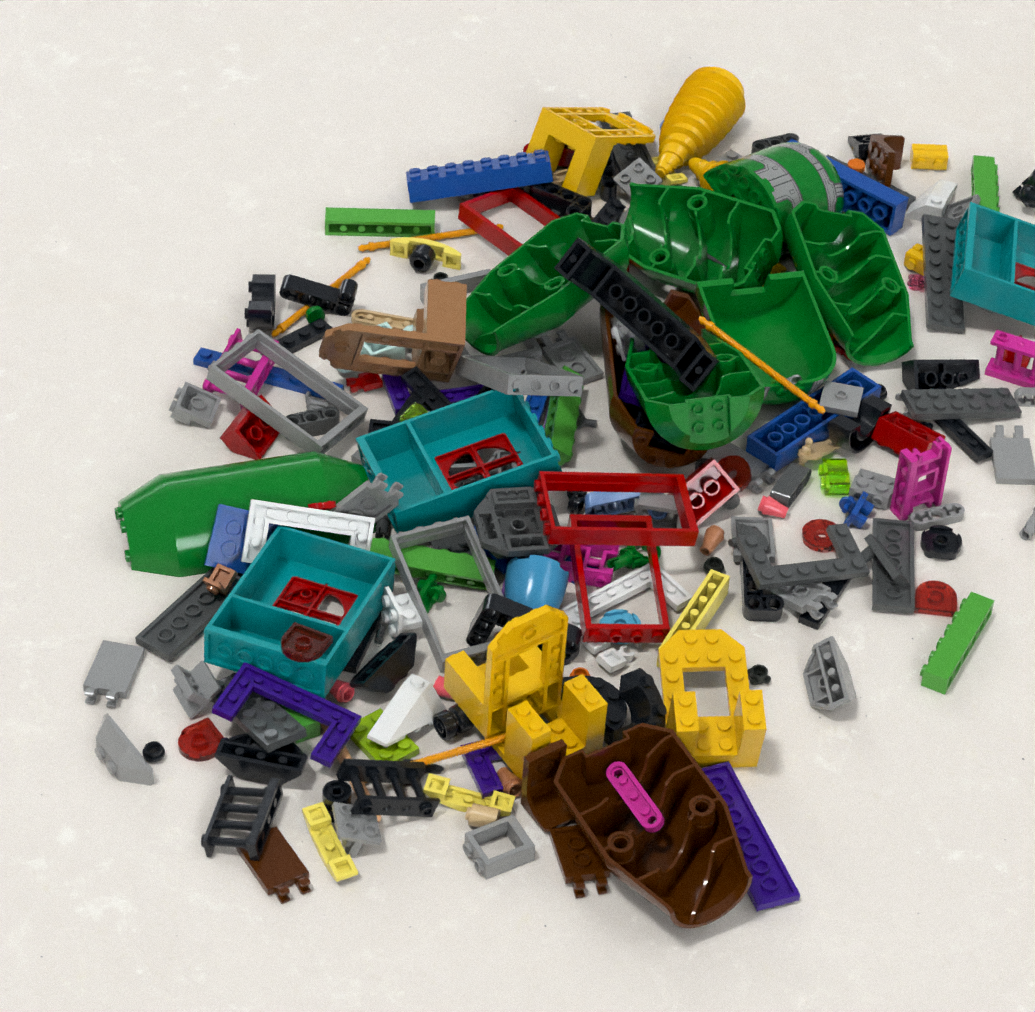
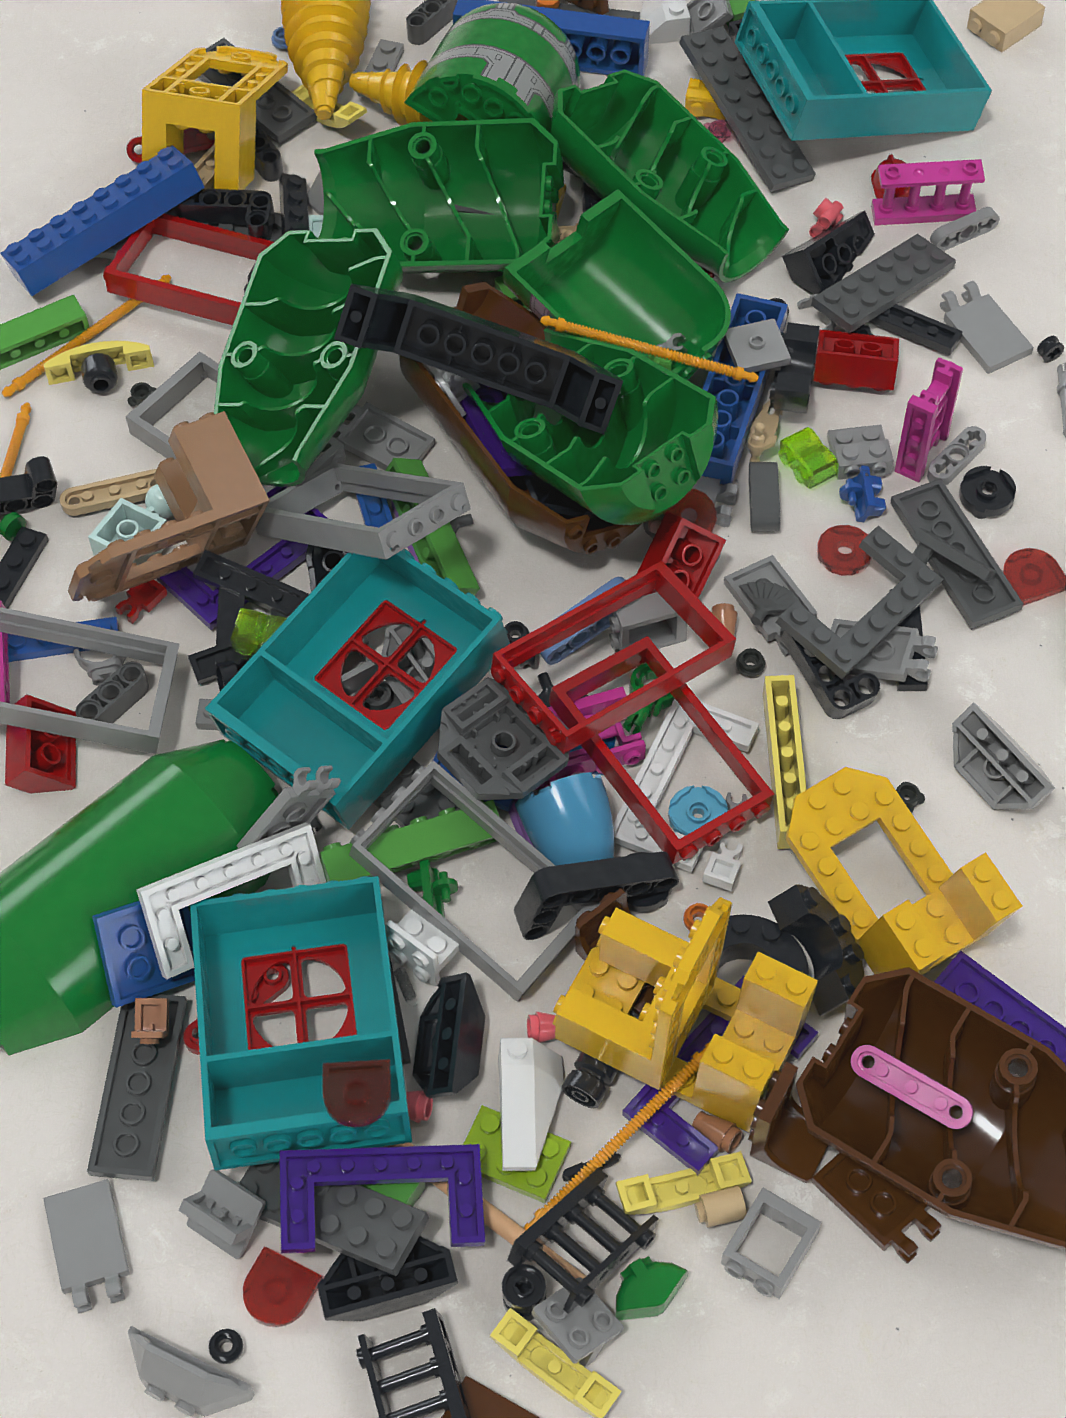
camera: 25 degrees left, 15 degrees up
(323, 505) = (231, 843): red piece -> none
(410, 835) = (647, 1288): none -> green piece
(638, 173) = (302, 134): light grey bracket -> none
(772, 507) = (763, 539): coral cone -> none
(952, 351) = (828, 215): none -> coral plate

